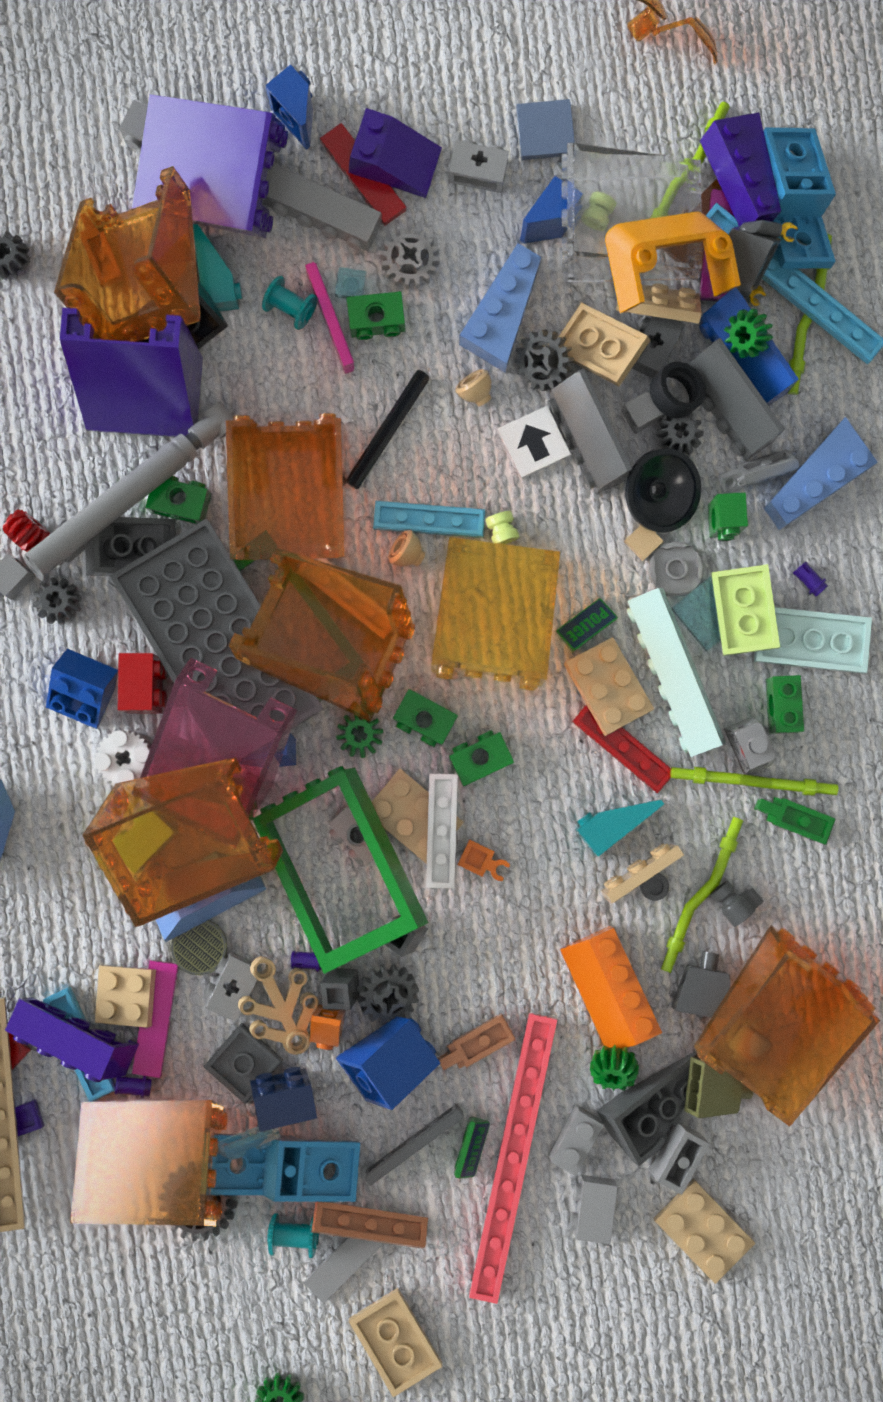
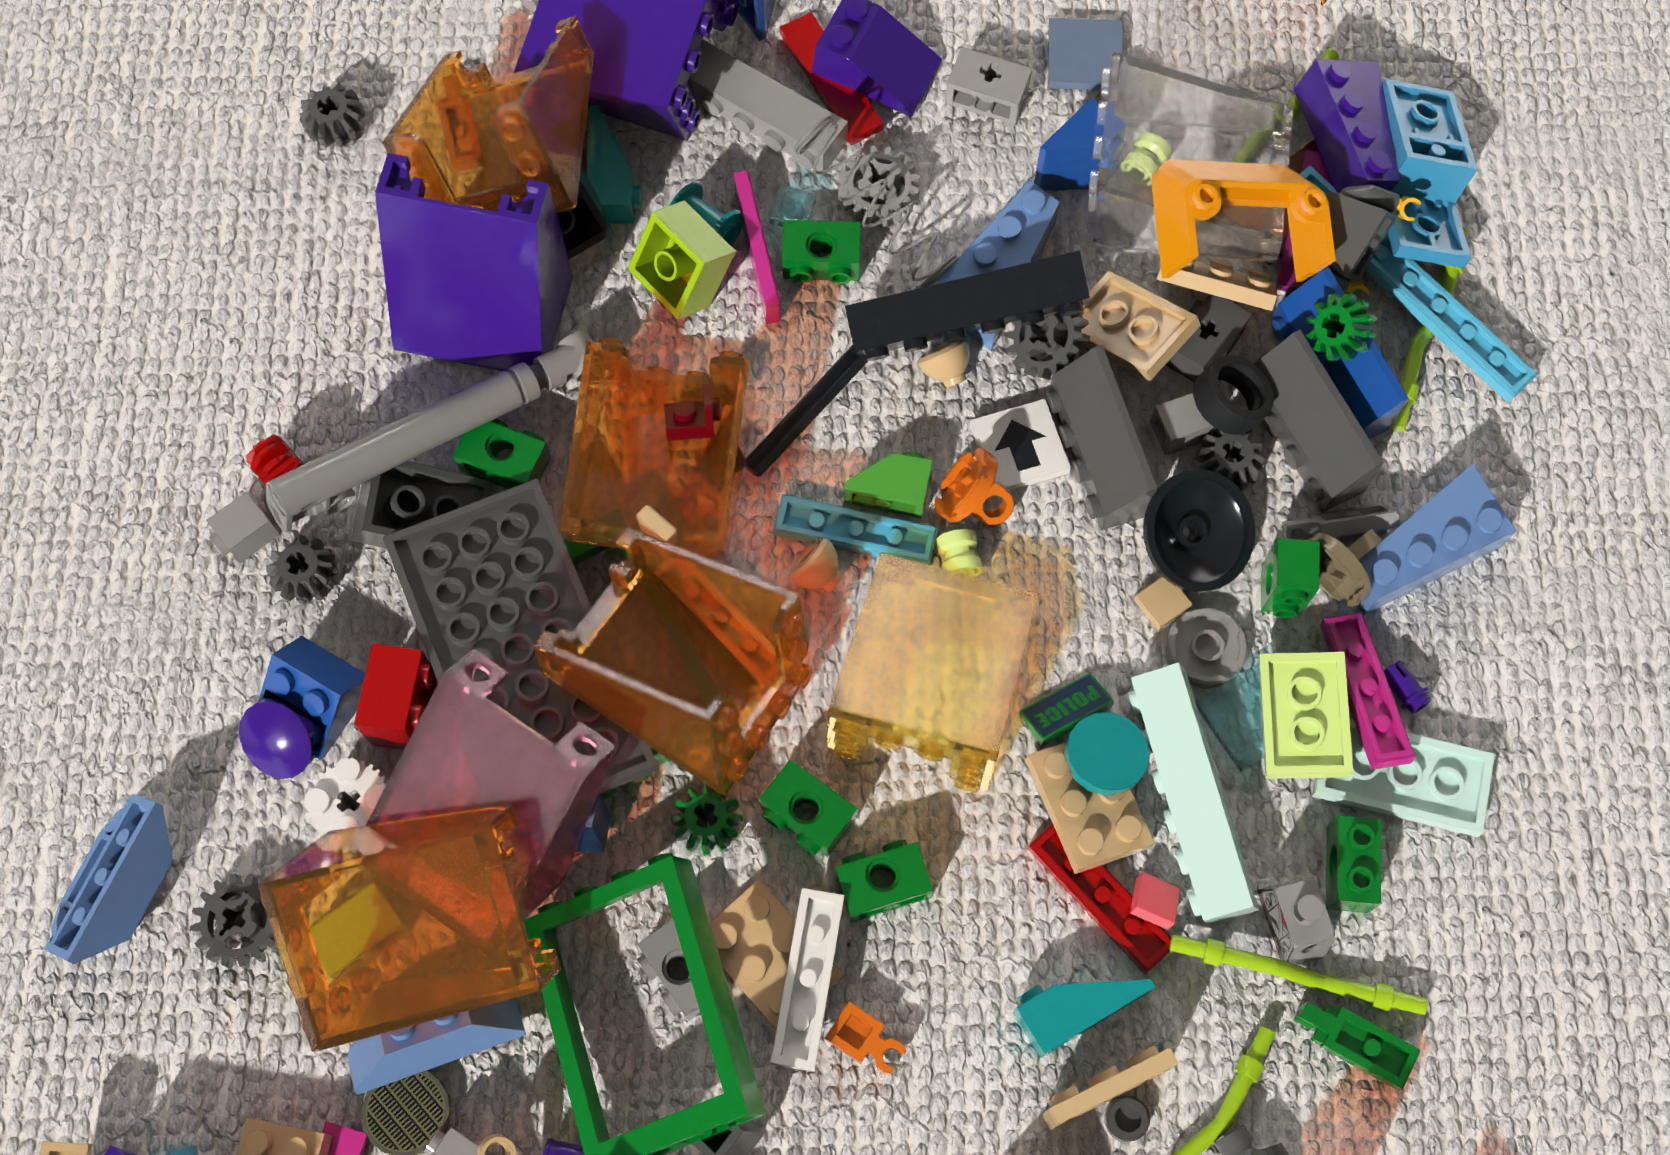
camera: 10 degrees right, 15 degrees down
(61, 854) = (228, 933): none -> dark grey gear
(65, 721) = (276, 739): none -> dark purple dish
(278, 338) = (681, 259): none -> lime brick
(296, 545) = (657, 526): none -> tan tile
(305, 456) = (692, 419): none -> dark red bracket
(451, 483) = (892, 485): none -> bright green slope
(460, 321) = (812, 137): none -> light grey piece
(487, 349) = (968, 305): none -> black brick
(502, 479) = (969, 485): none -> orange tile
(617, 655) = (1106, 753): none -> teal tile
(658, 746) = (1155, 901): none -> coral tile
(760, 503) = (1340, 568): none -> dark tan tile
(785, 586) = (1368, 692): none -> dark pink tile

